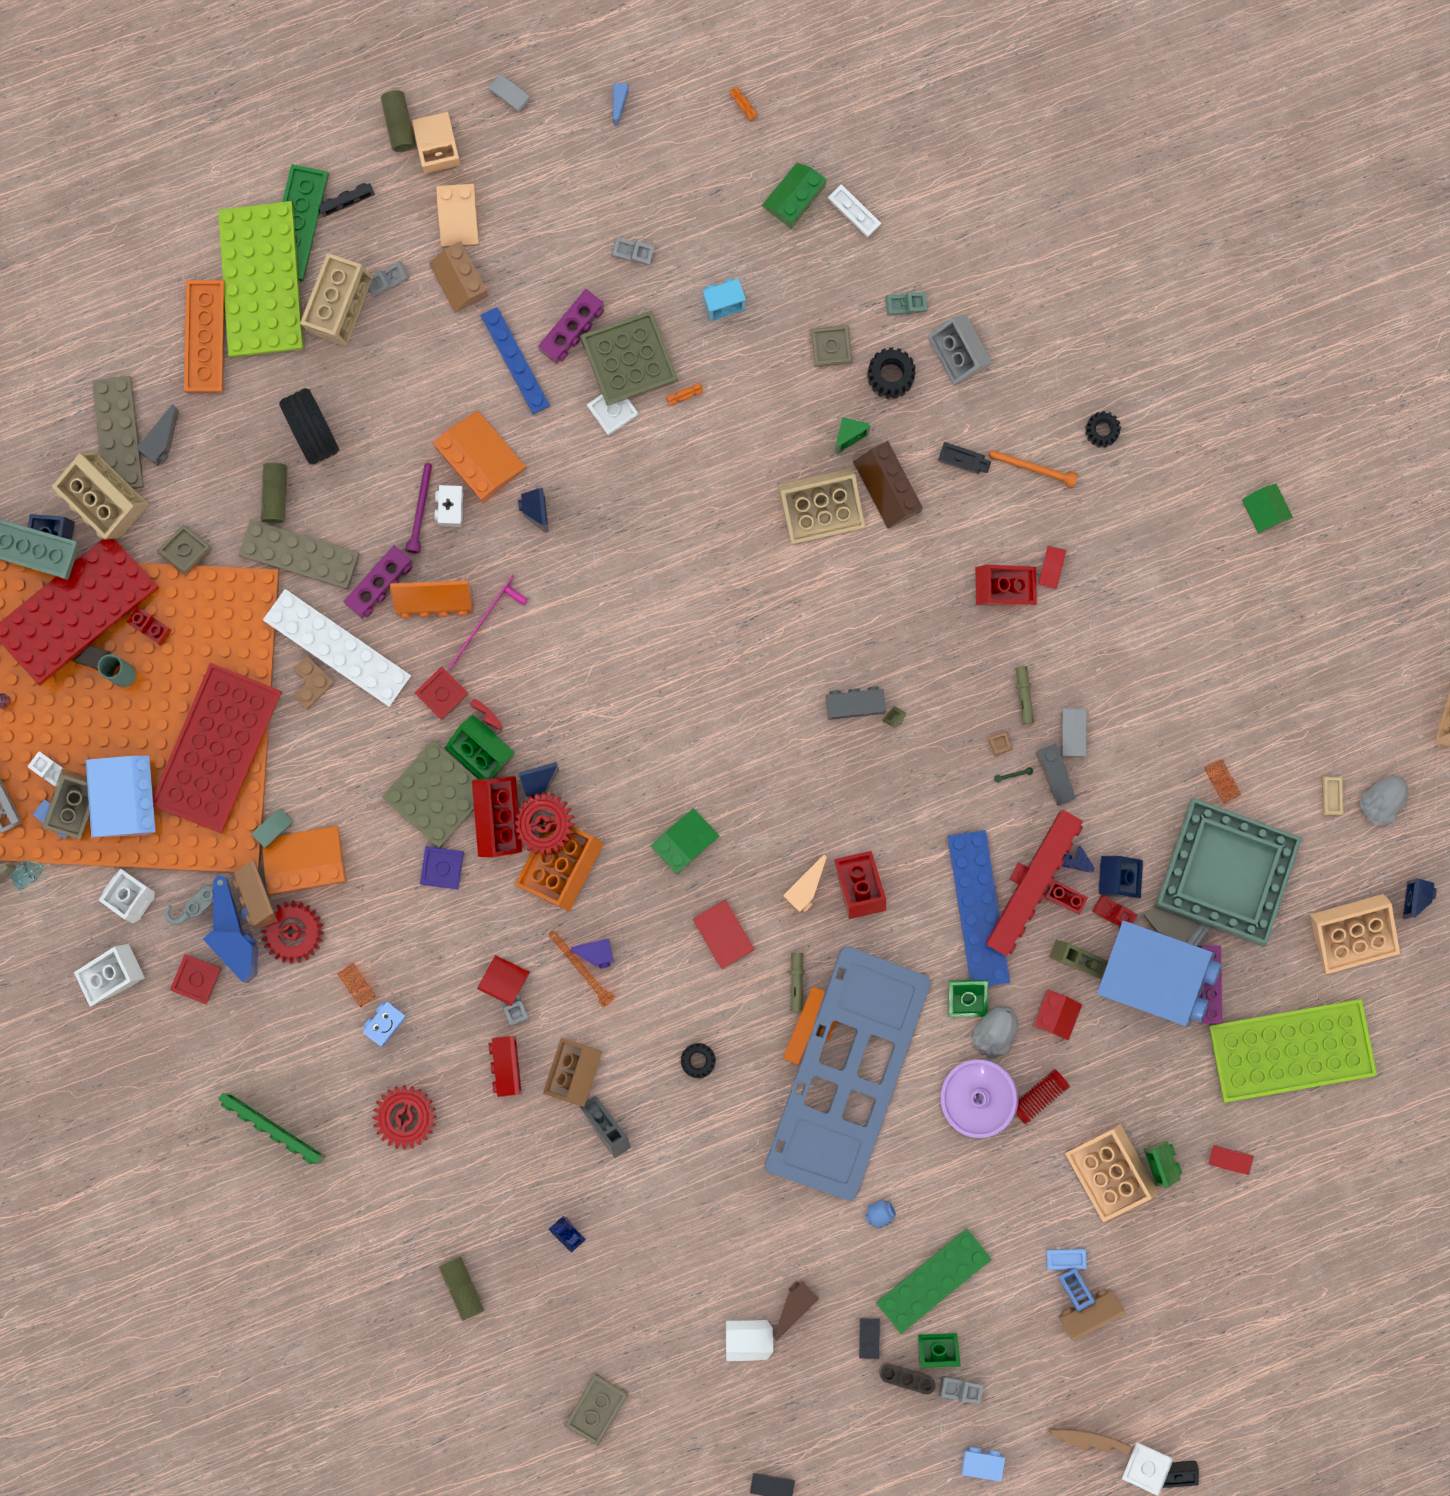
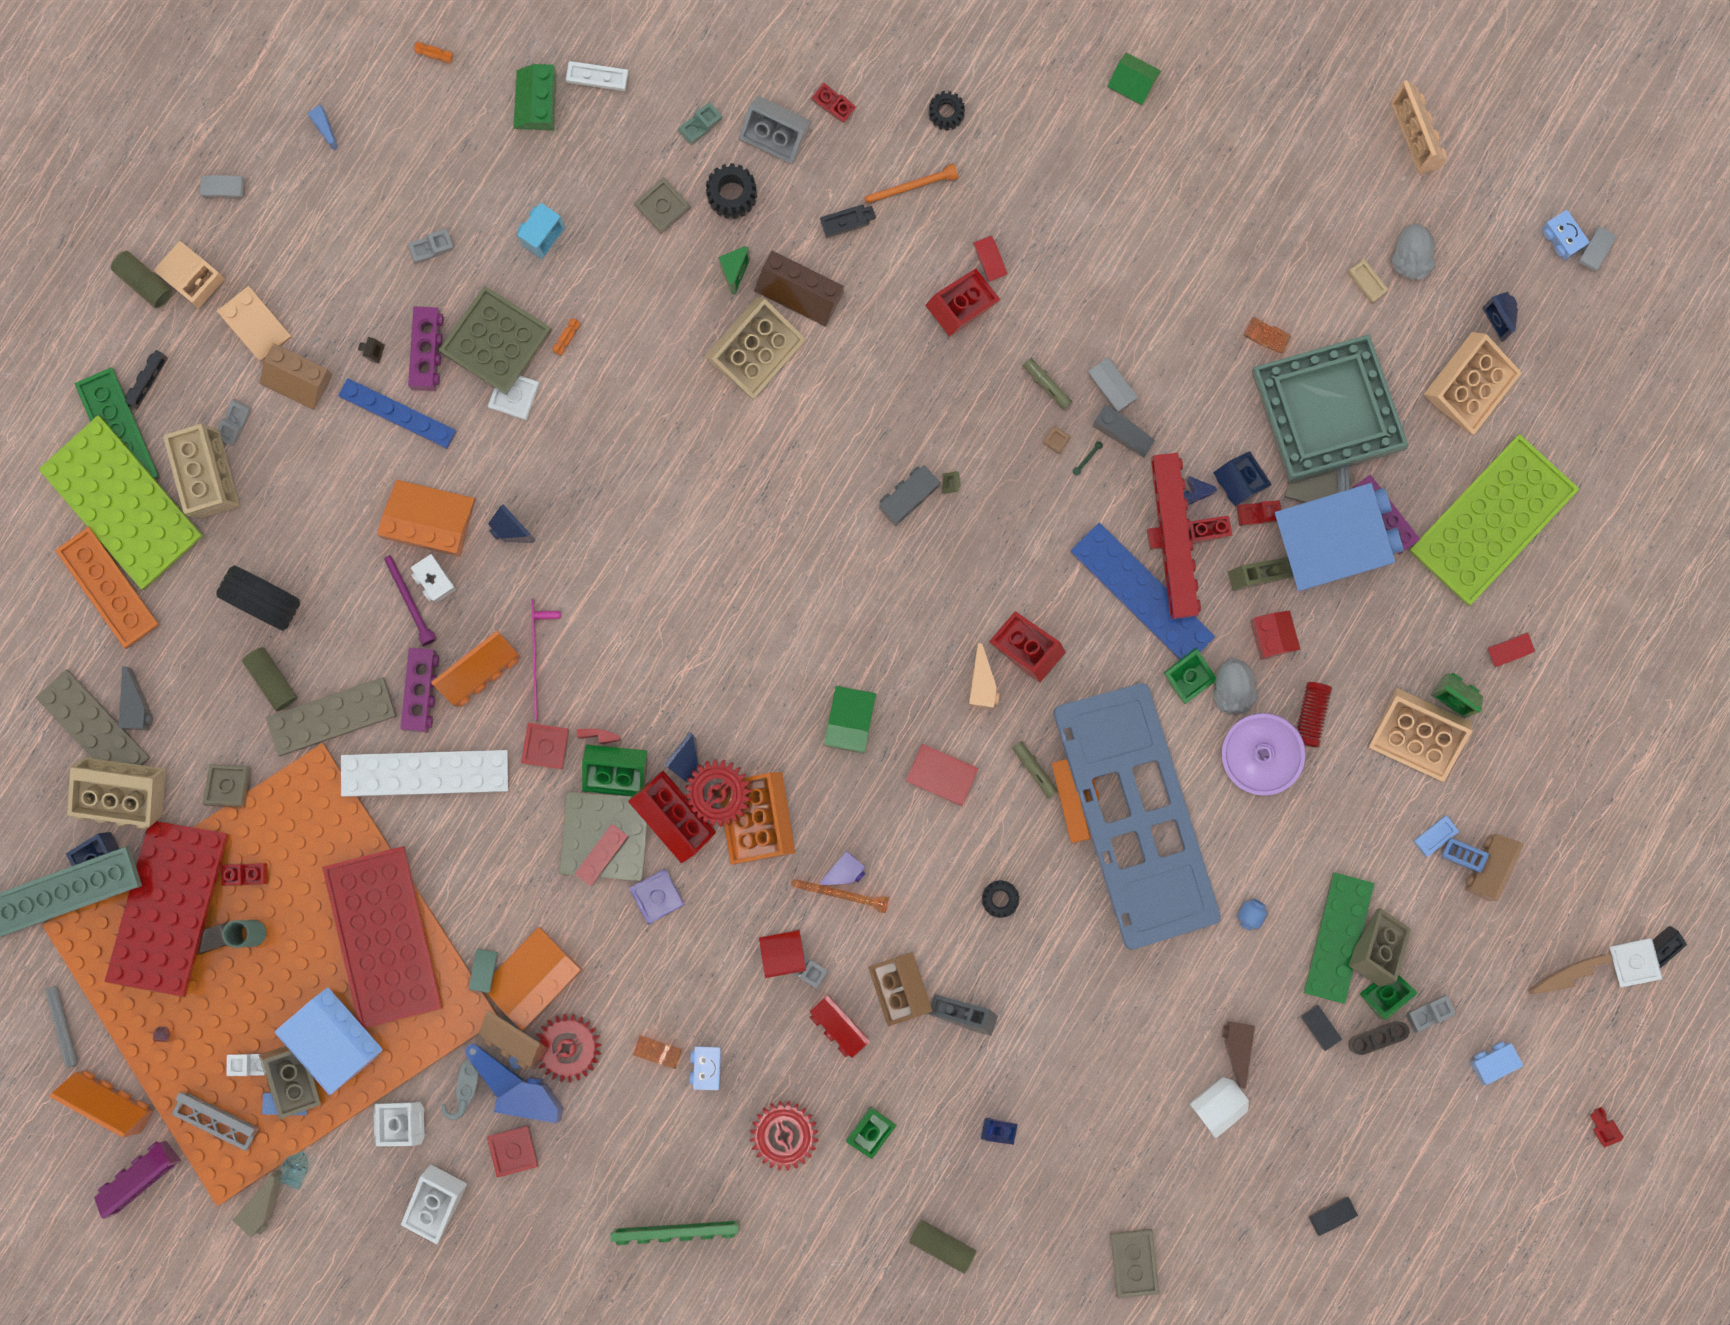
camera: 35 degrees left, 0 degrees up
(316, 682) = (429, 816): medium nougat plate -> none
(423, 806) = (601, 855): none -> plate
(471, 1163) = (870, 1132): none -> green slope
(531, 298) = (372, 349): none -> dark brown tile
(959, 1312) = (1381, 949): none -> dark tan slope
(1020, 360) = (833, 103): none -> red slope

